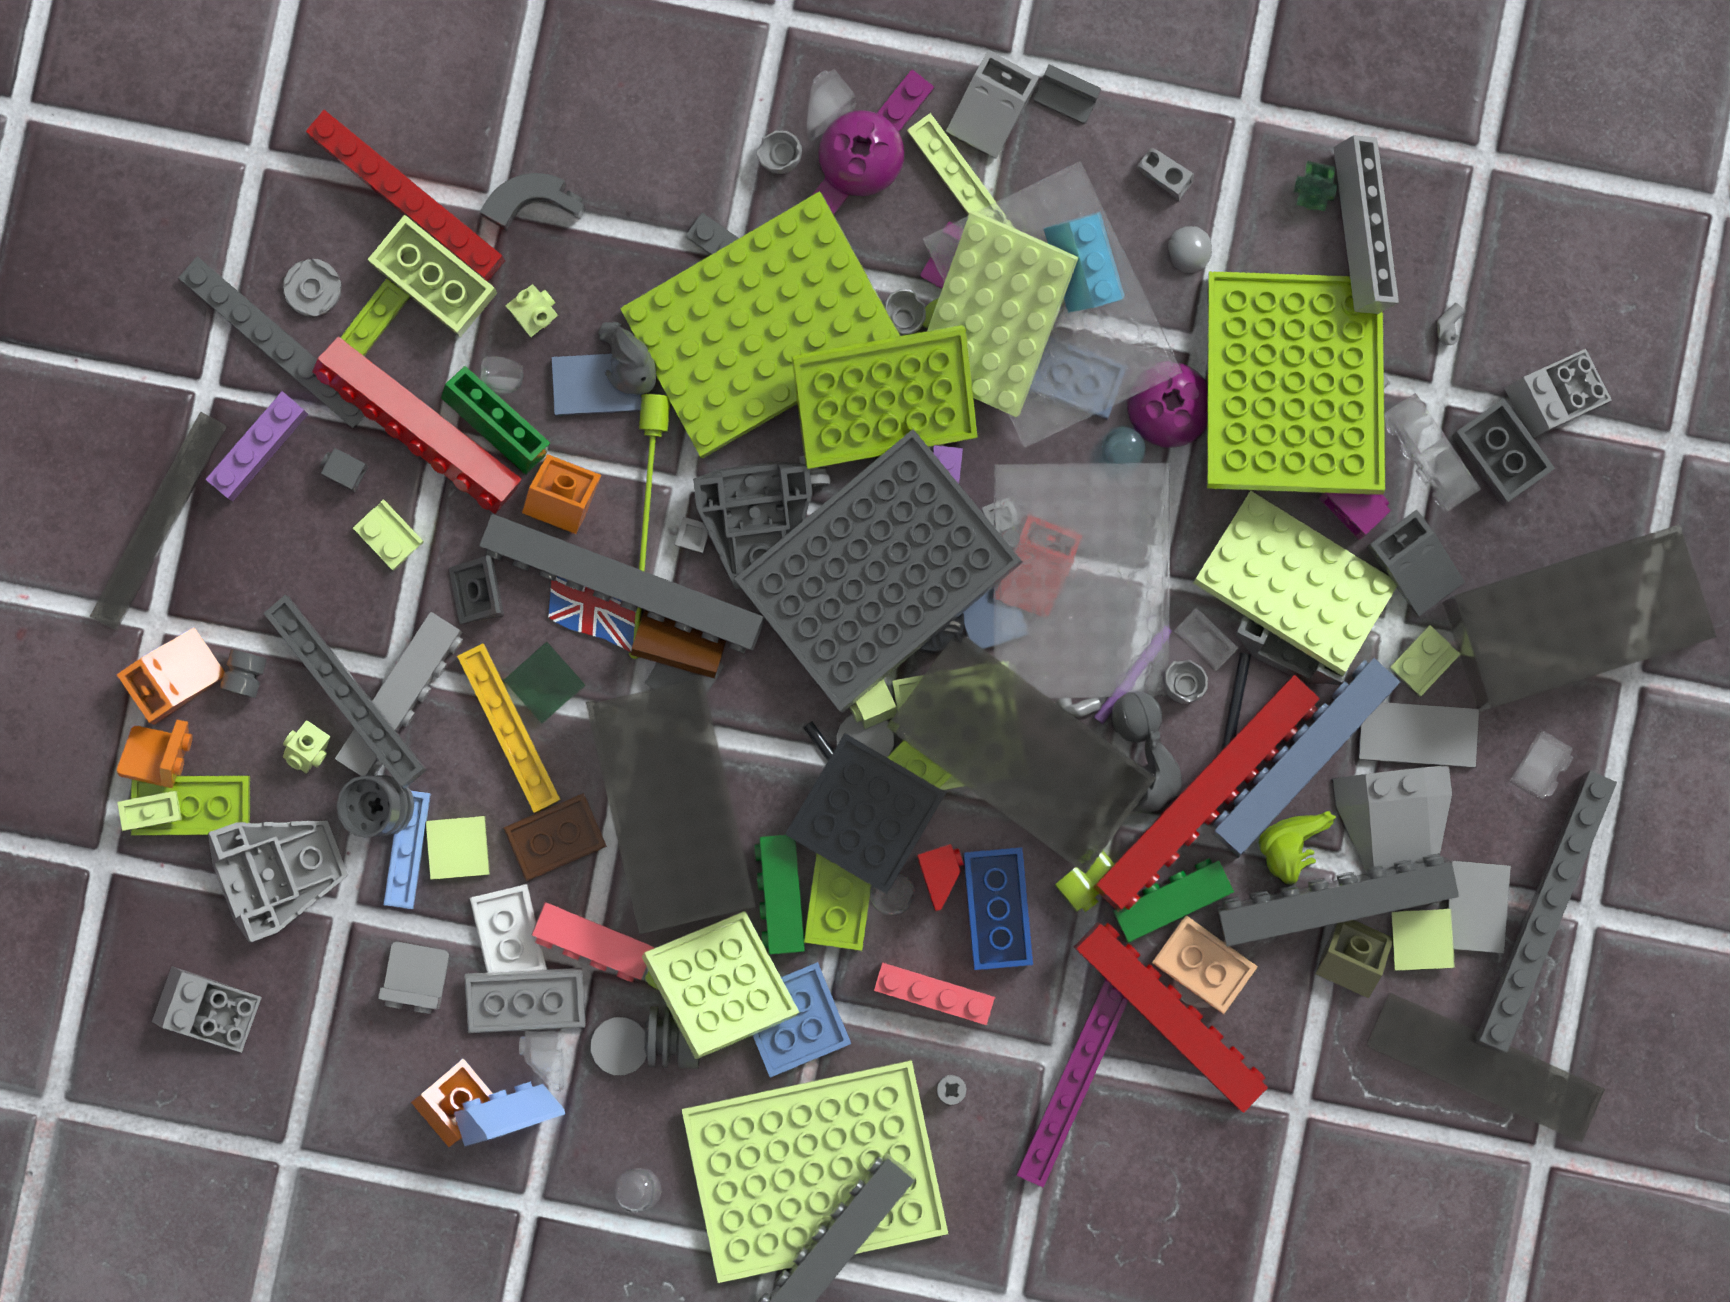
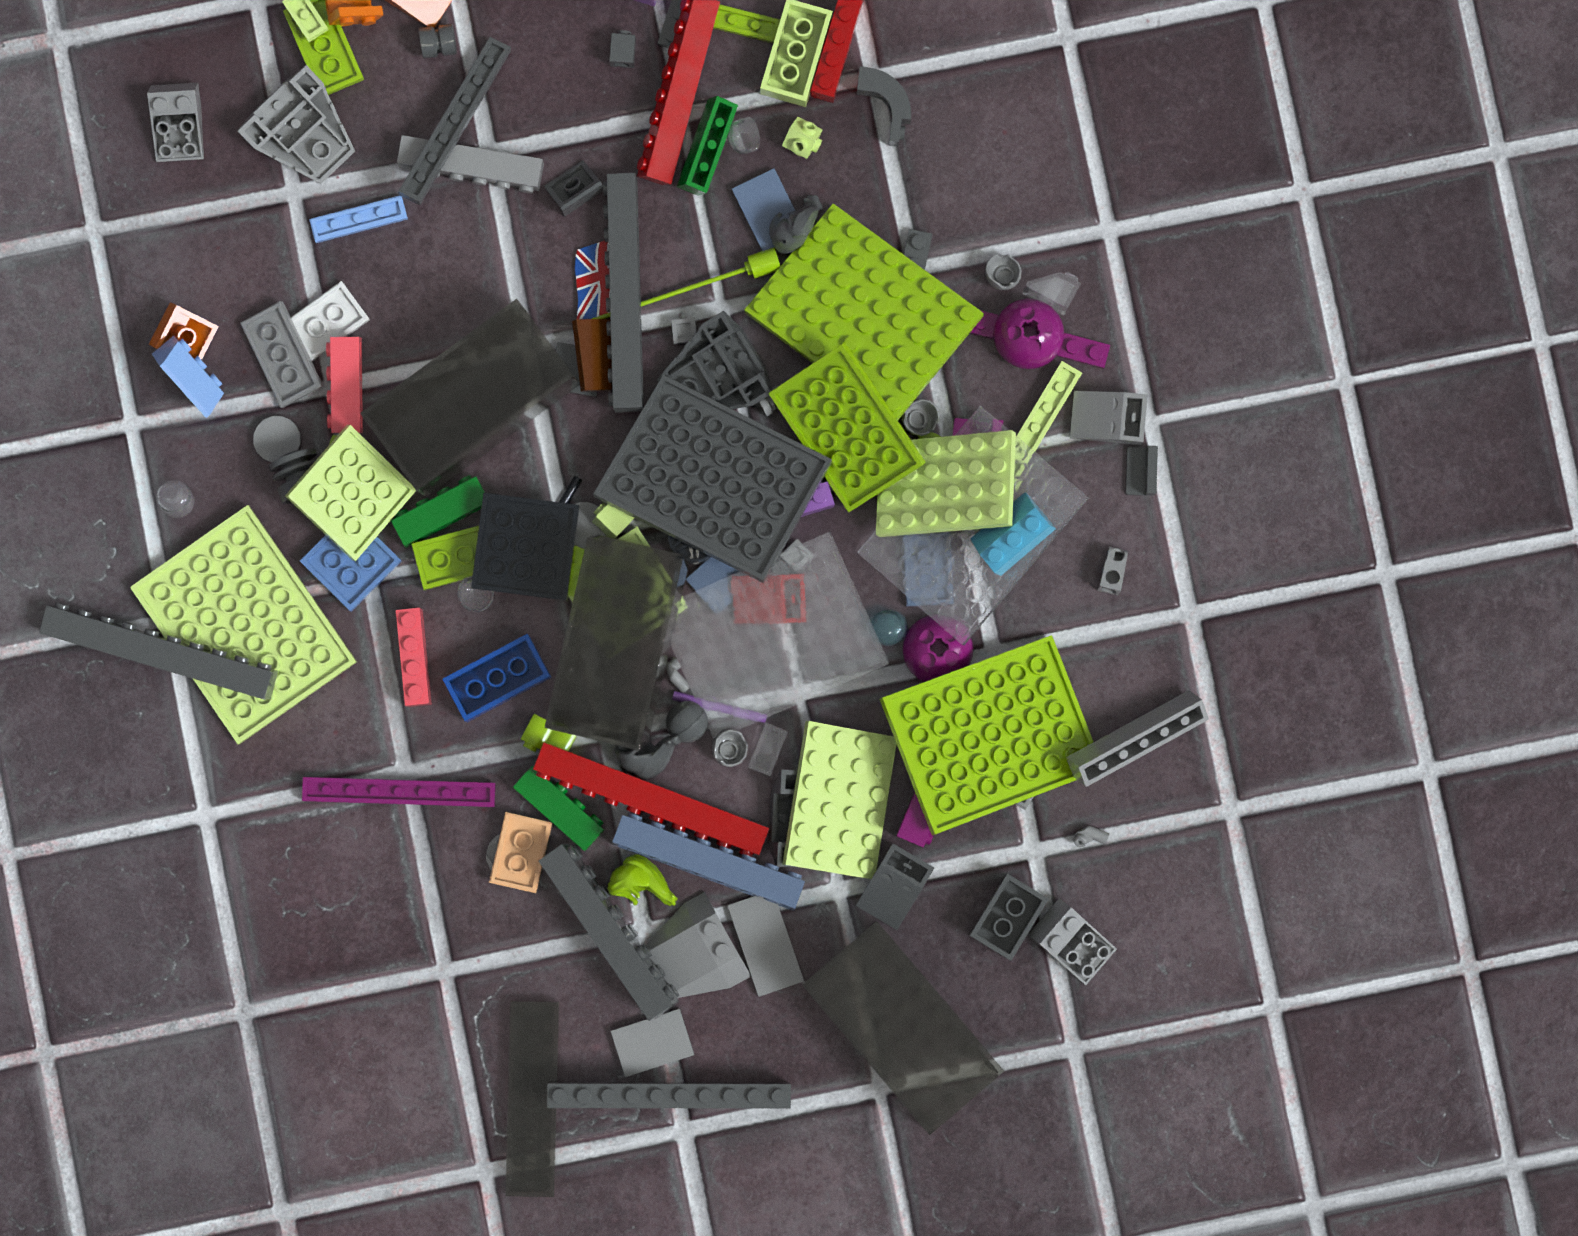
camera: 70 degrees right, 0 degrees up
(306, 747) = (401, 110): yellowish green brick -> none
(375, 806) = (377, 179): dark grey wheel -> none
(388, 535) = (588, 104): yellowish green plate -> none
(415, 977) = (264, 265): light grey bracket -> none
(457, 847) = (375, 256): yellowish green tile -> none
(509, 728) = (480, 255): yellow plate -> none
(544, 682) = (526, 267): clear green plate -> none
(545, 1055) = (244, 386): clear slope -> none
(555, 837) = (413, 325): reddish brown tile -> none
(561, 494) = (673, 219): orange slope -> none
(940, 872) = (505, 622): red slope -> none
(951, 1086) = (351, 703): light grey wheel -> none
(1170, 1017) = (469, 843): red brick -> none
(1190, 249) = (1063, 614): light grey hair -> none
(1236, 698) = (734, 793): black bar -> none
(1315, 186) = (1152, 688): clear green brick -> none
(1355, 957) = (574, 964): olive slope -> none
(1423, 939) = (609, 1011): yellowish green tile -> none
(1424, 660) = (823, 924): yellowish green plate -> none
(1431, 452) = (985, 861): clear brick -> none
(1542, 765) = (781, 1047): clear brick -> none

